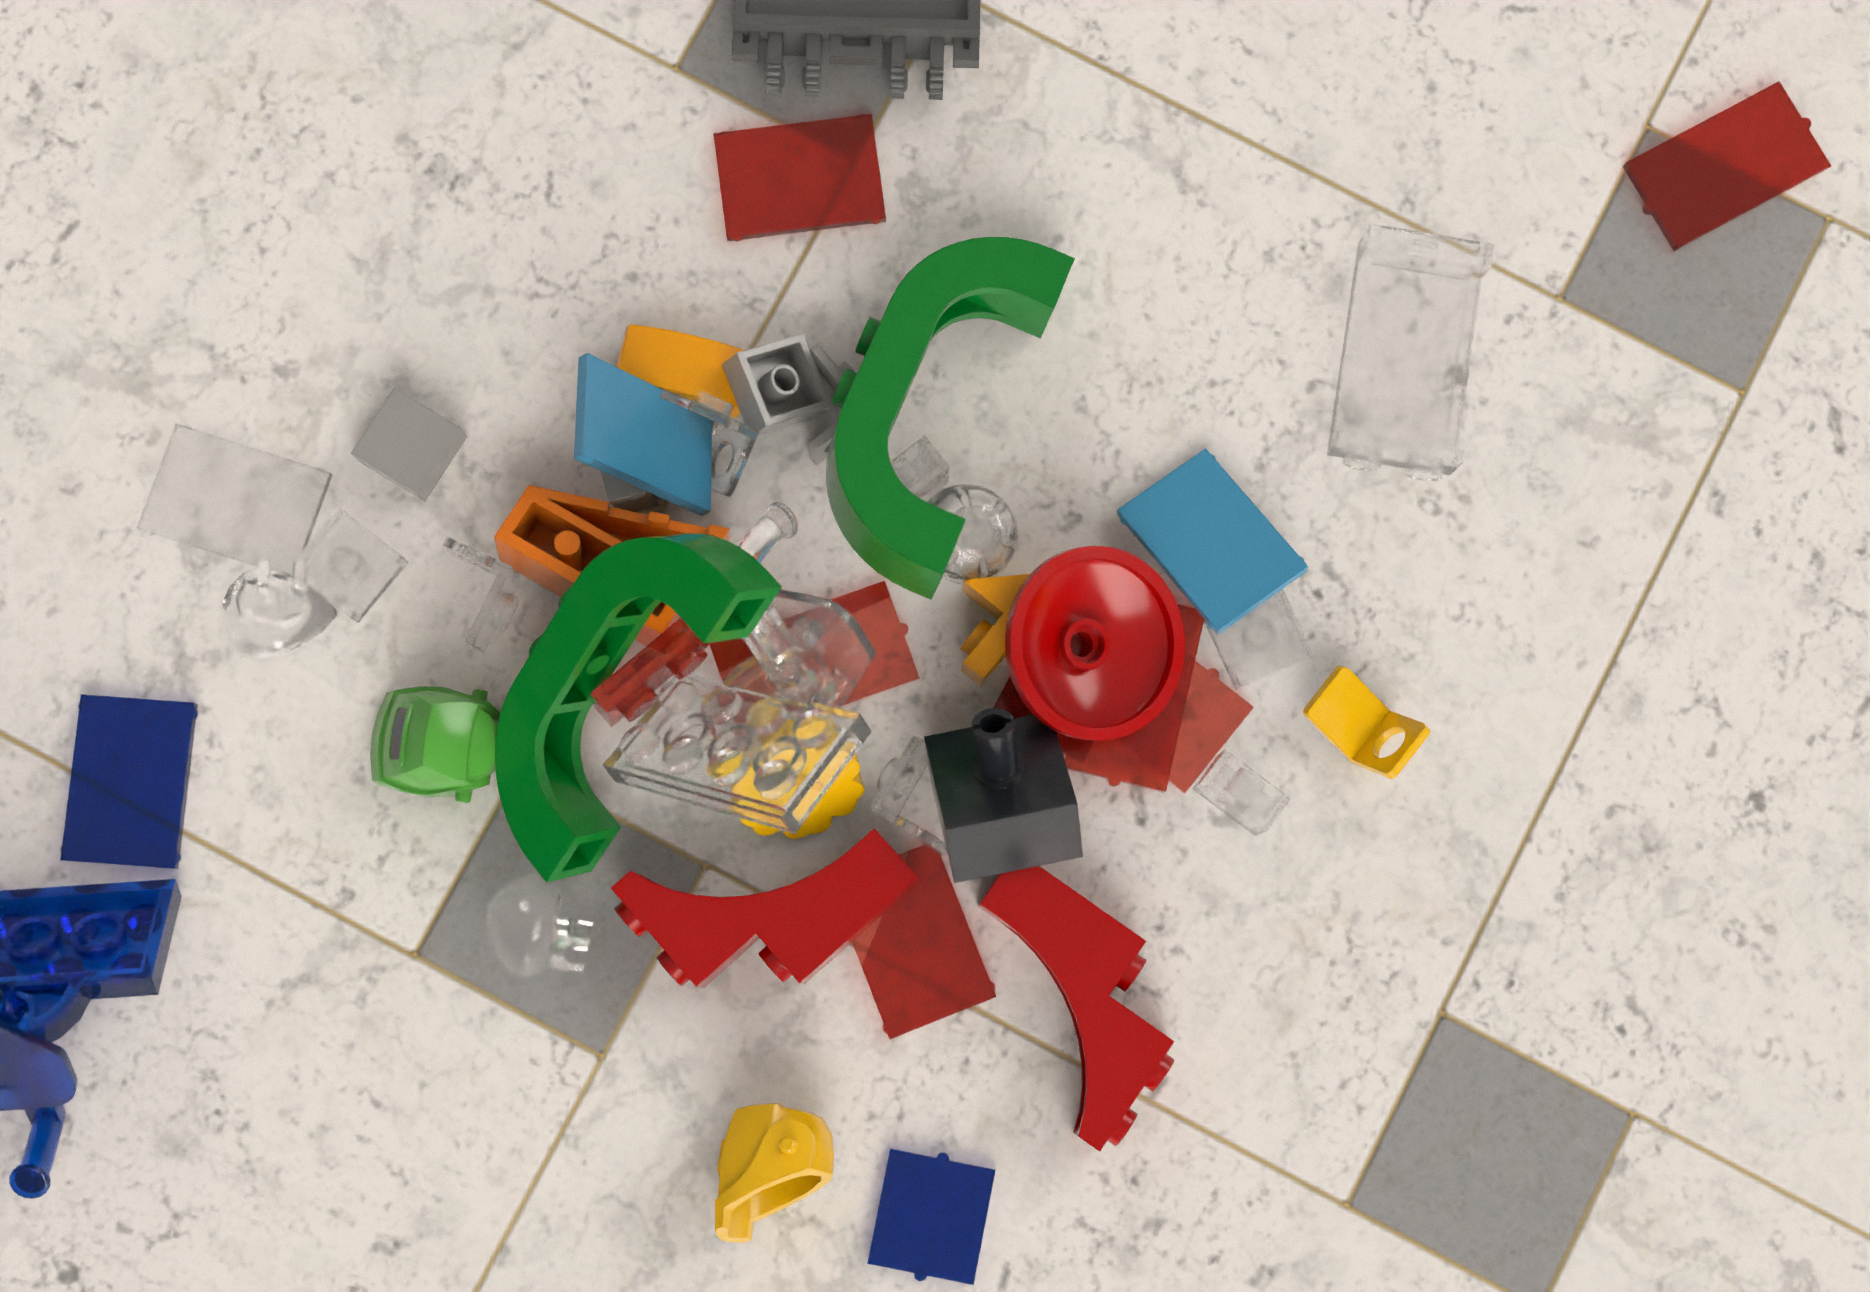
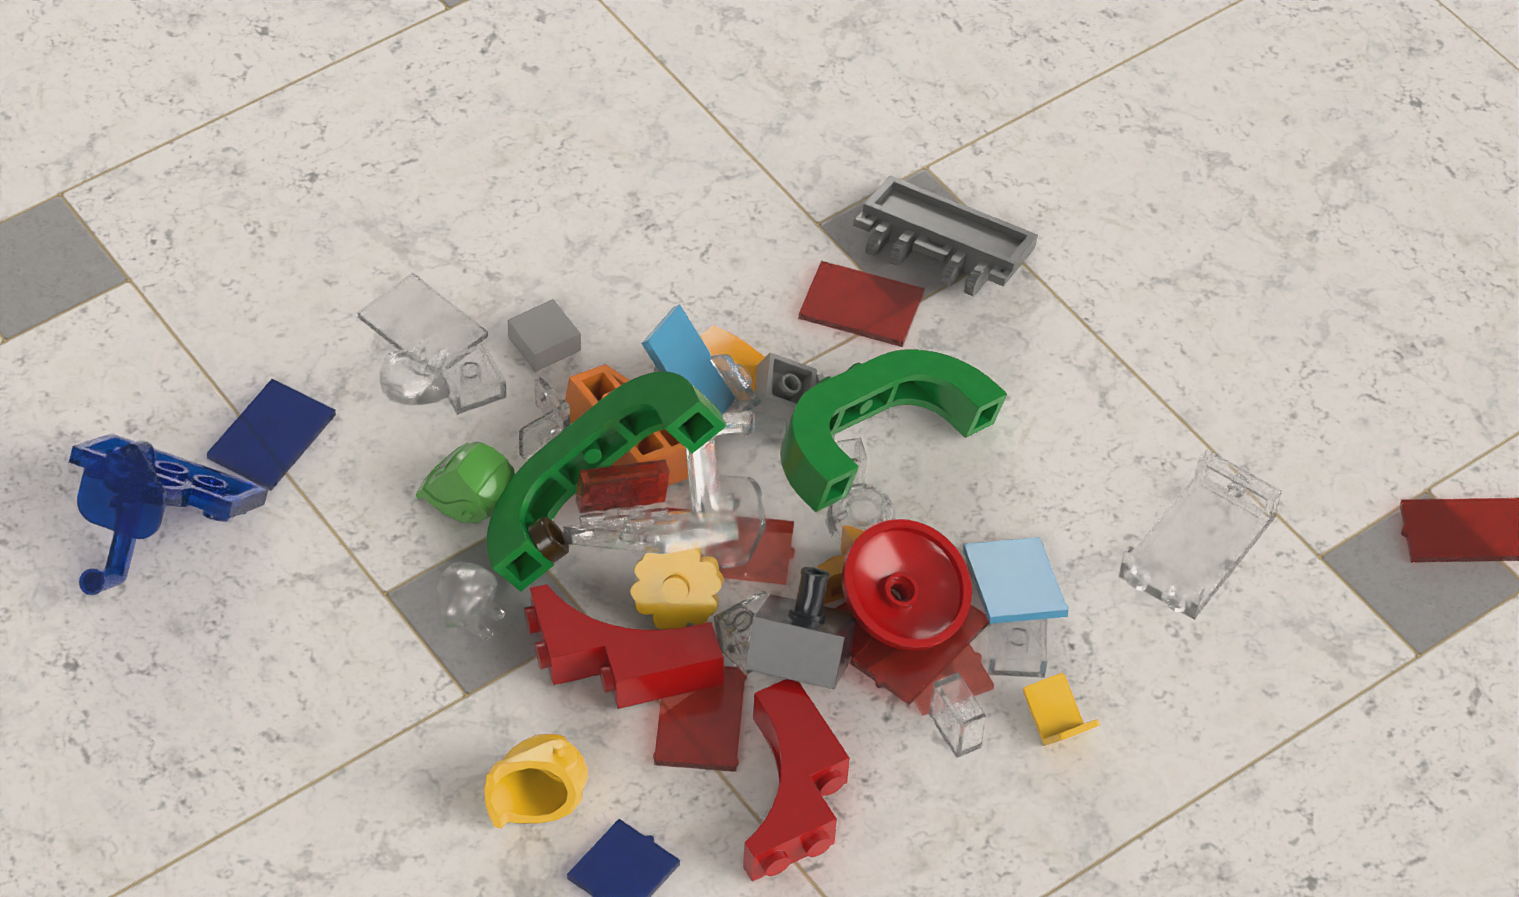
camera: 30 degrees right, 30 degrees down
(596, 799) = (549, 539): none -> dark brown tile

